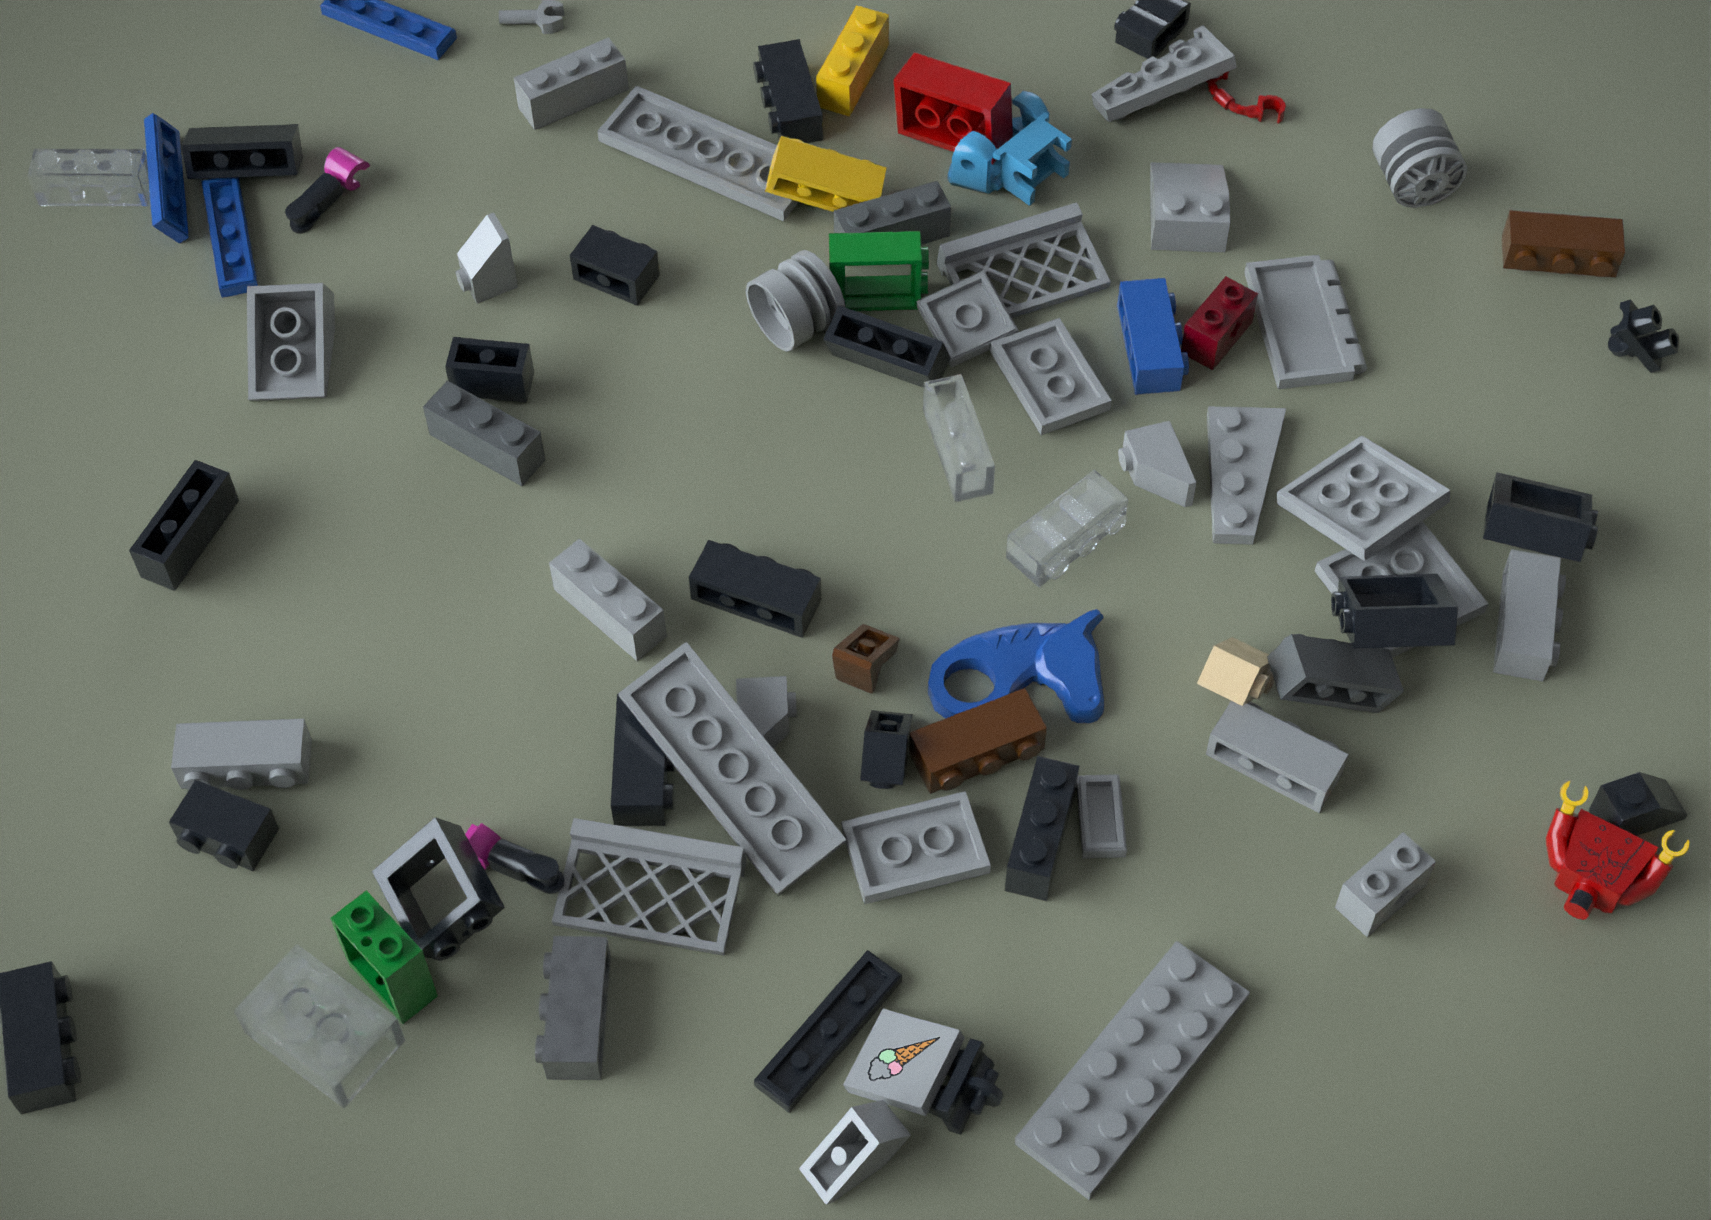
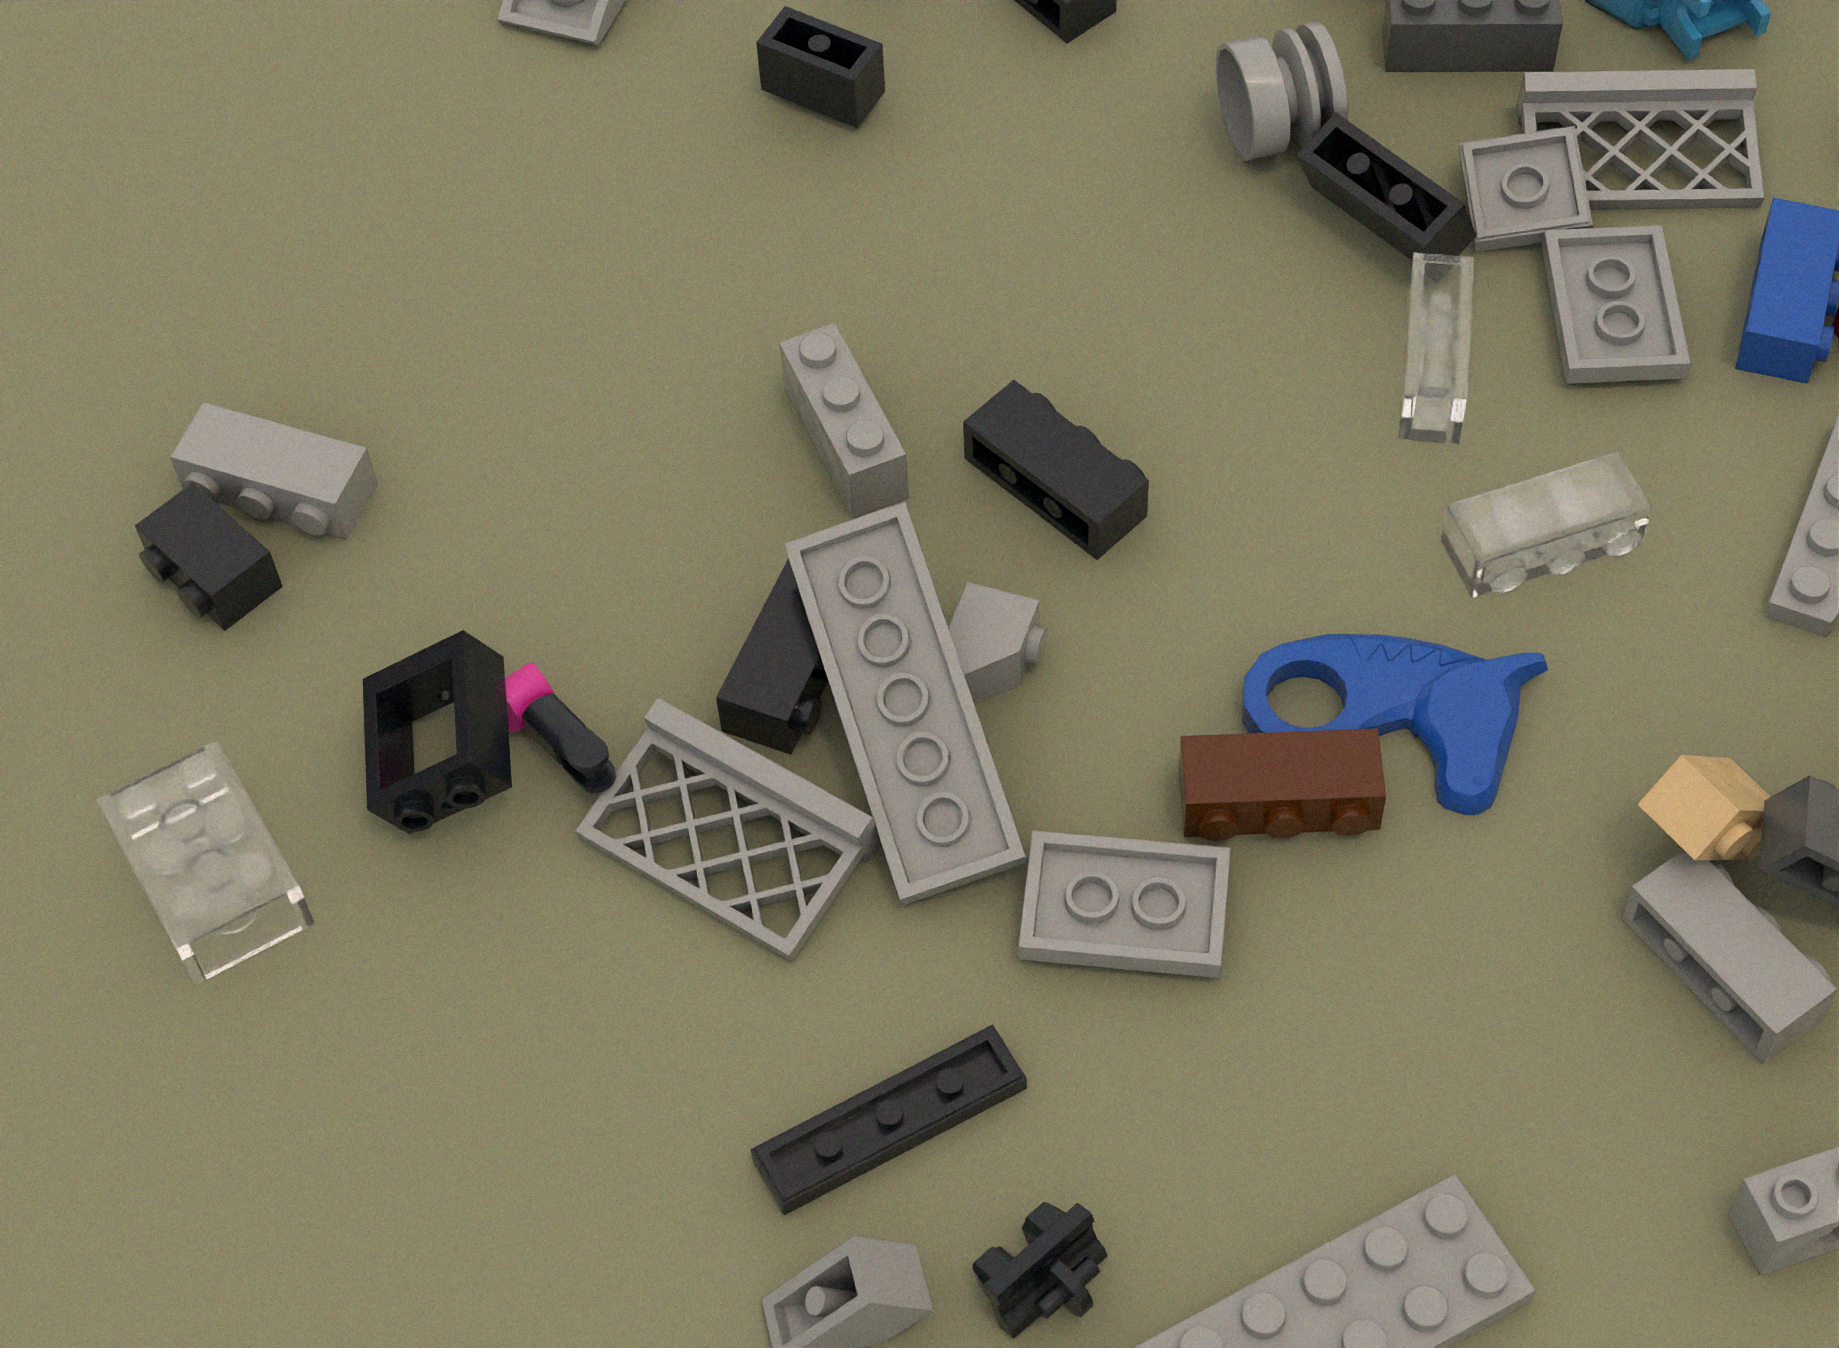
camera: 25 degrees right, 0 degrees up
(184, 525) = (335, 151): black brick -> none
(382, 949) = (319, 797): green window -> none
(484, 433) = (778, 149): dark grey brick -> none
(574, 1008) = (550, 960): flat silver brick -> none
(861, 656) = (1163, 606): reddish brown slope -> none
(879, 248) = (1425, 49): green window -> none
(885, 749) = (1140, 749): black slope -> none
(904, 1061) = (972, 1202): light grey tile -> none
(1041, 828) = (1319, 939): black brick -> none
(1101, 816) = (1420, 954): light grey tile -> none
(1158, 463) = (1724, 472): light grey slope -> none

